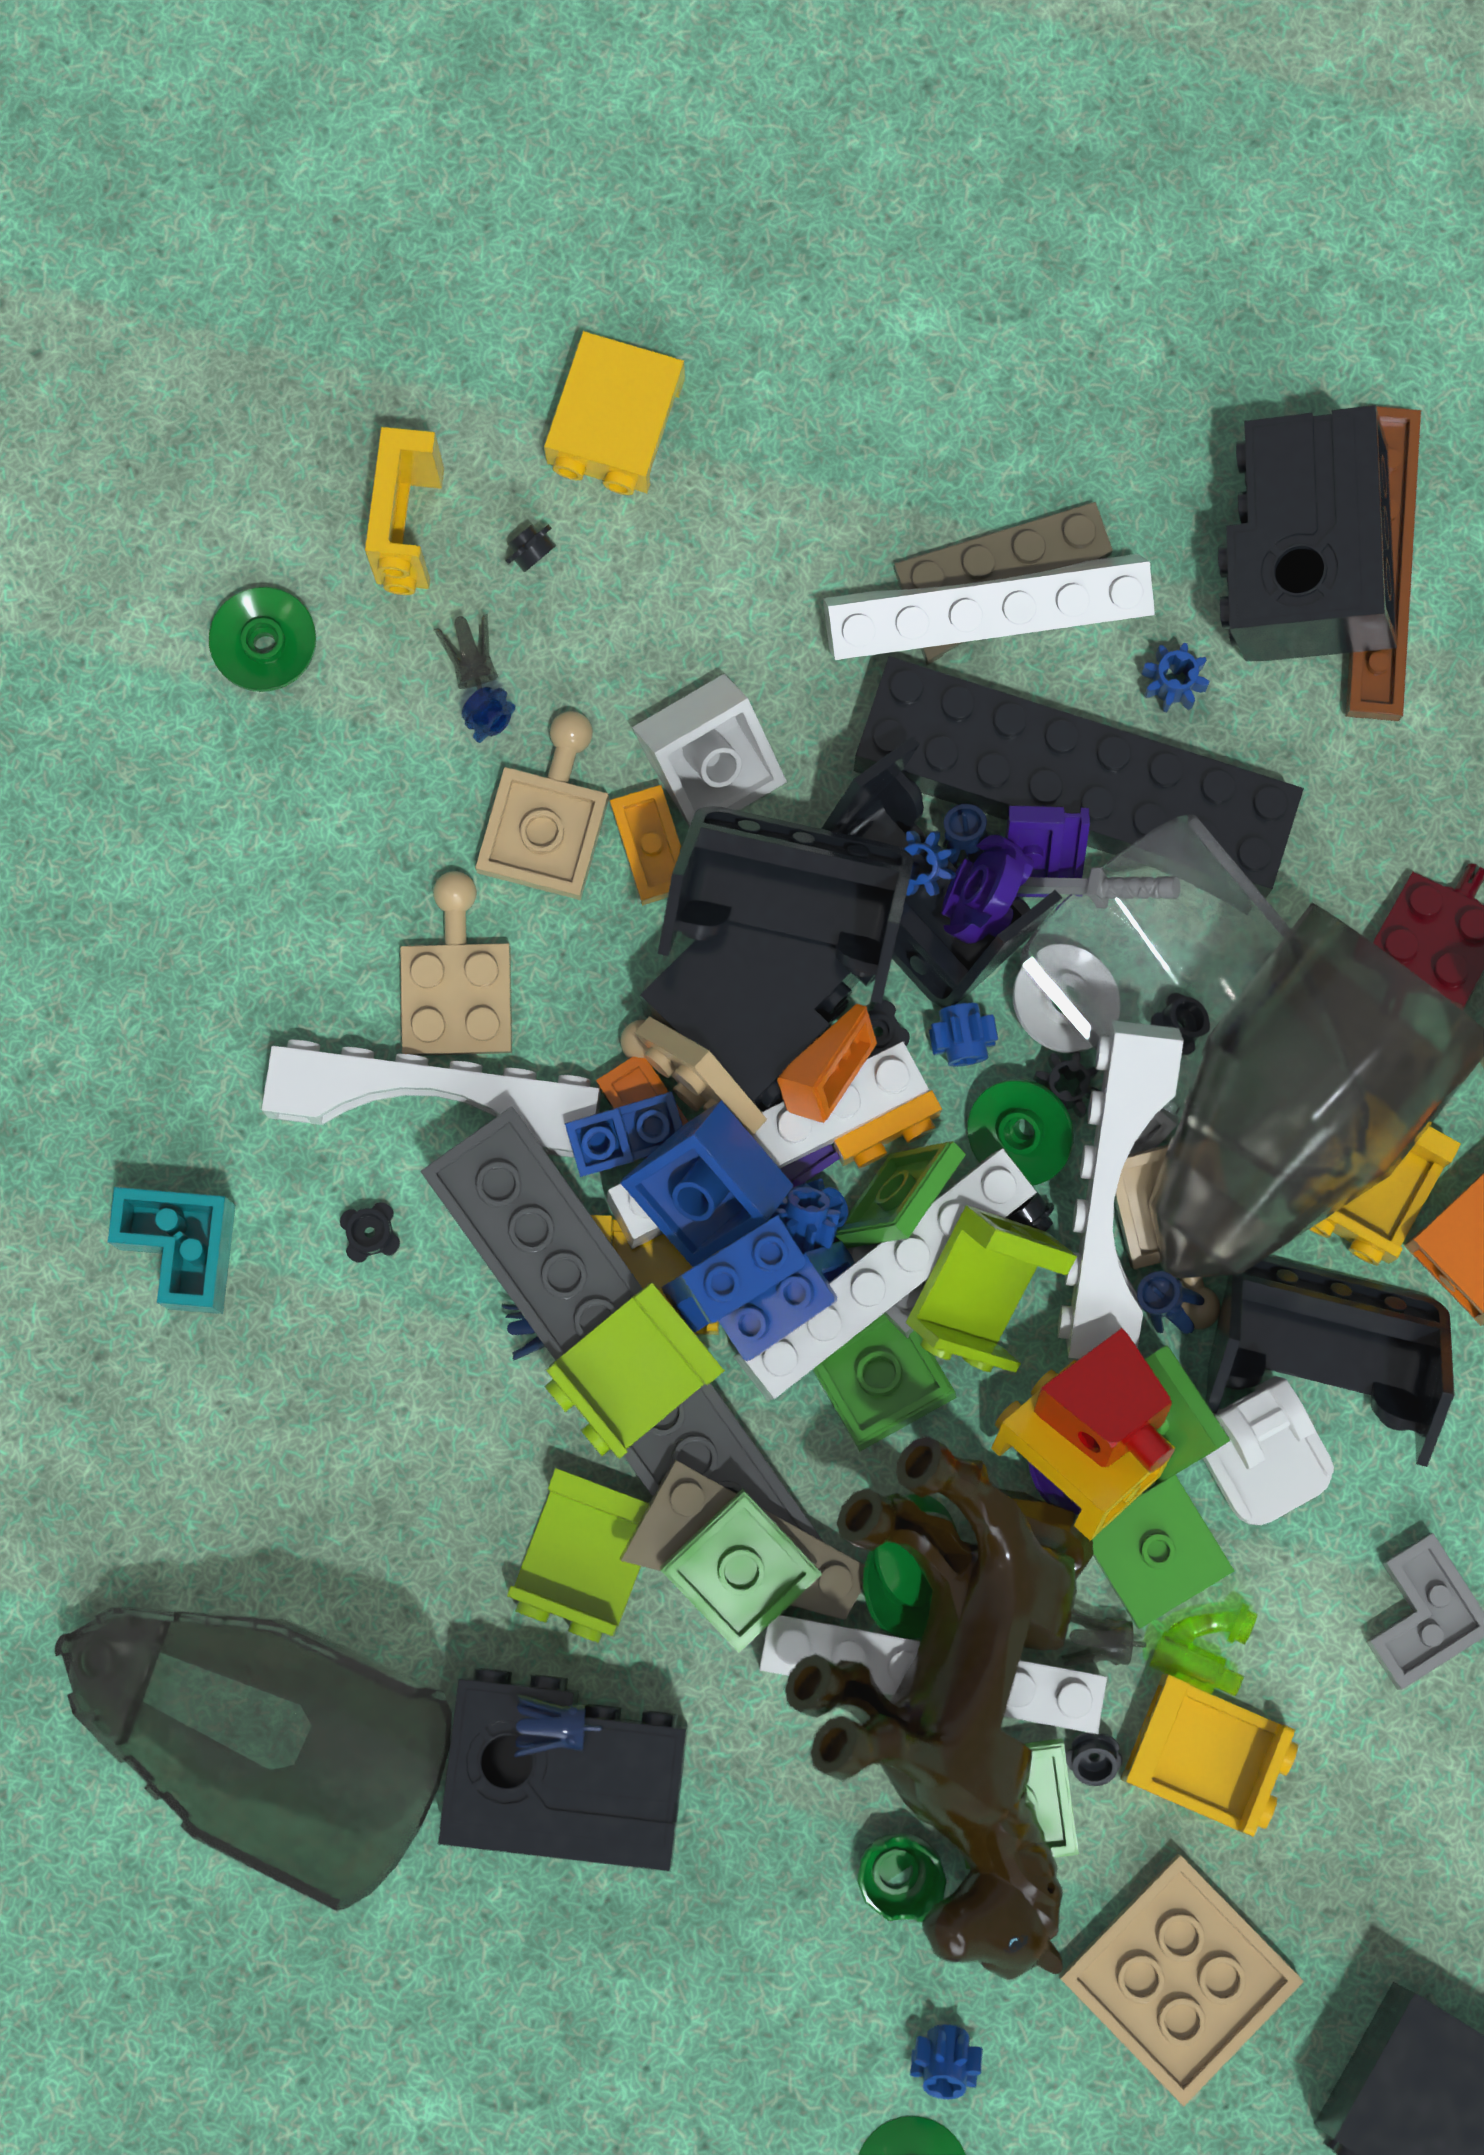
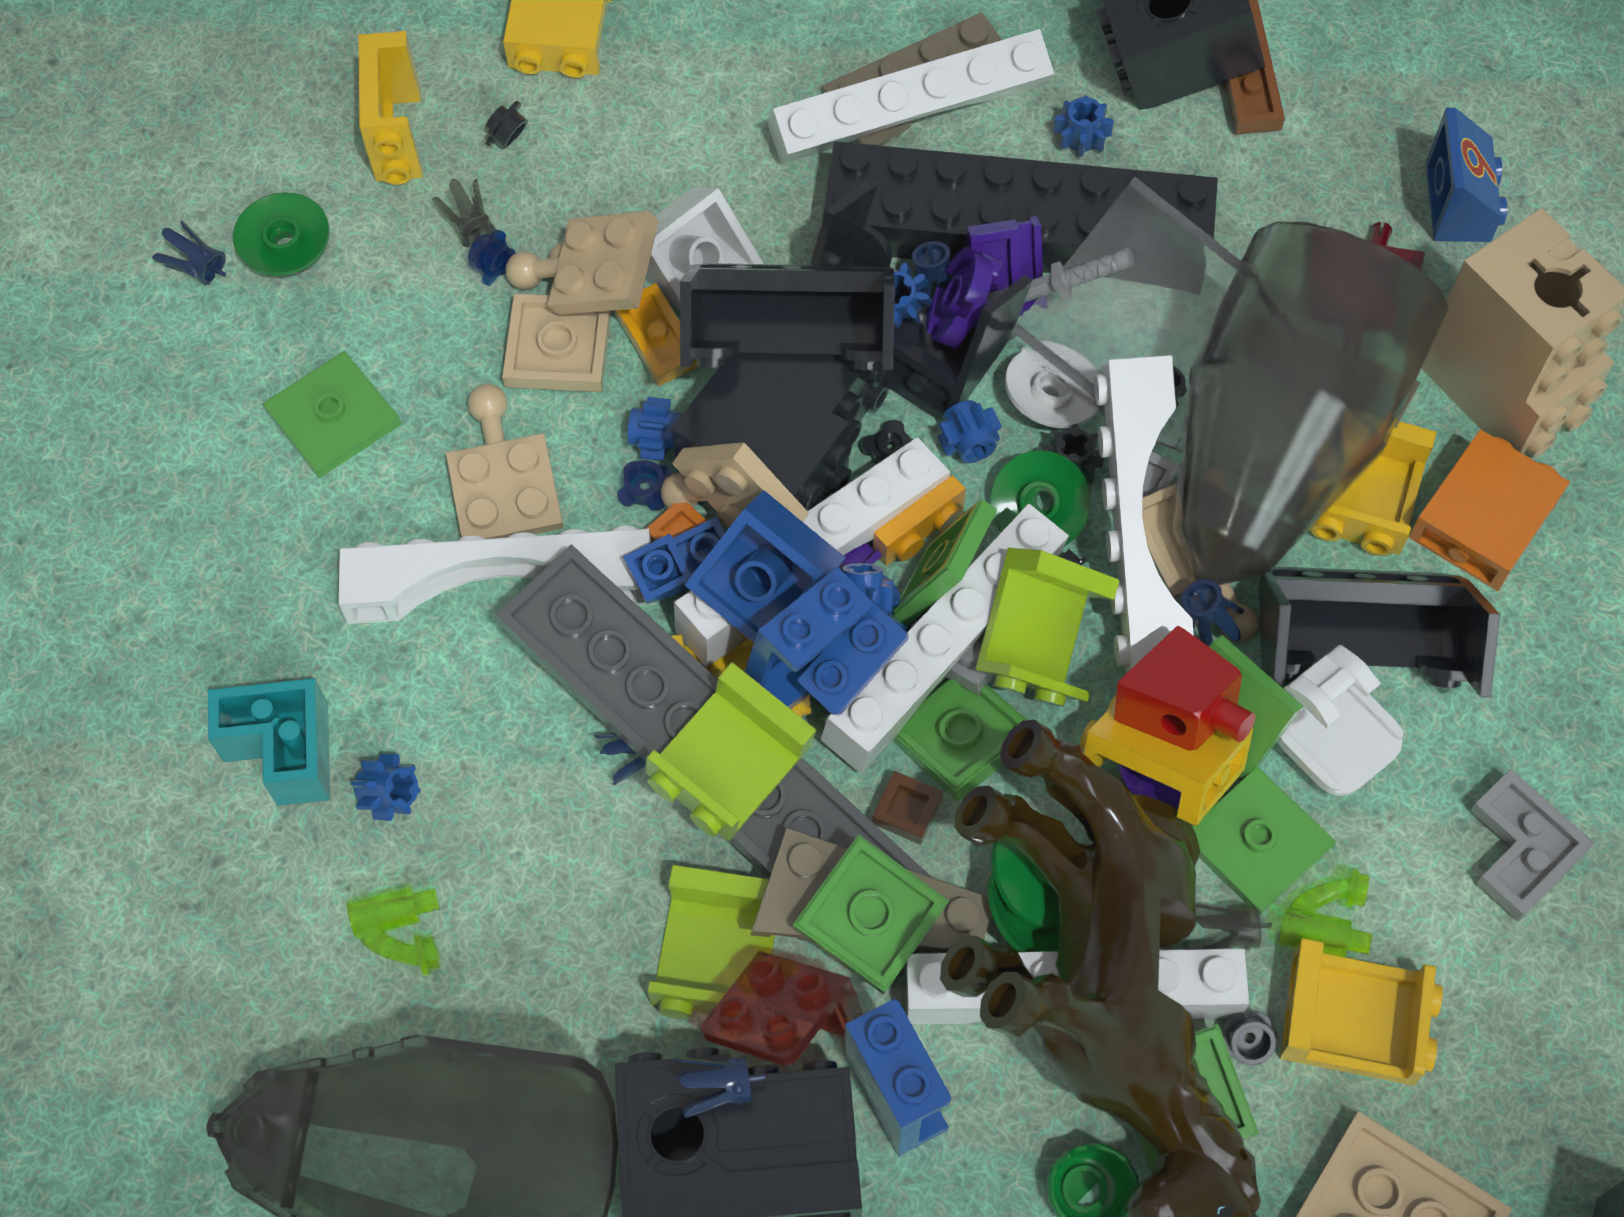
camera: 10 degrees left, 15 degrees down
(172, 652) = (203, 259): none -> dark blue piece
(269, 1448) = (393, 910): none -> clear neon green plant
(281, 1318) = (385, 787): none -> blue gear
(286, 869) = (332, 414): none -> bright green plate
(356, 1224) = (448, 691): black plate -> none
(599, 763) = (598, 265): none -> tan plate
(599, 1008) = (643, 472): none -> clear blue plate
(628, 963) = (651, 428): none -> blue gear
(632, 1650) = (780, 1008): none -> clear red bracket
(733, 1740) = (897, 1076): none -> blue panel
(807, 1445) = (907, 807): none -> reddish brown plate
(828, 1066) = (850, 462): orange slope -> none

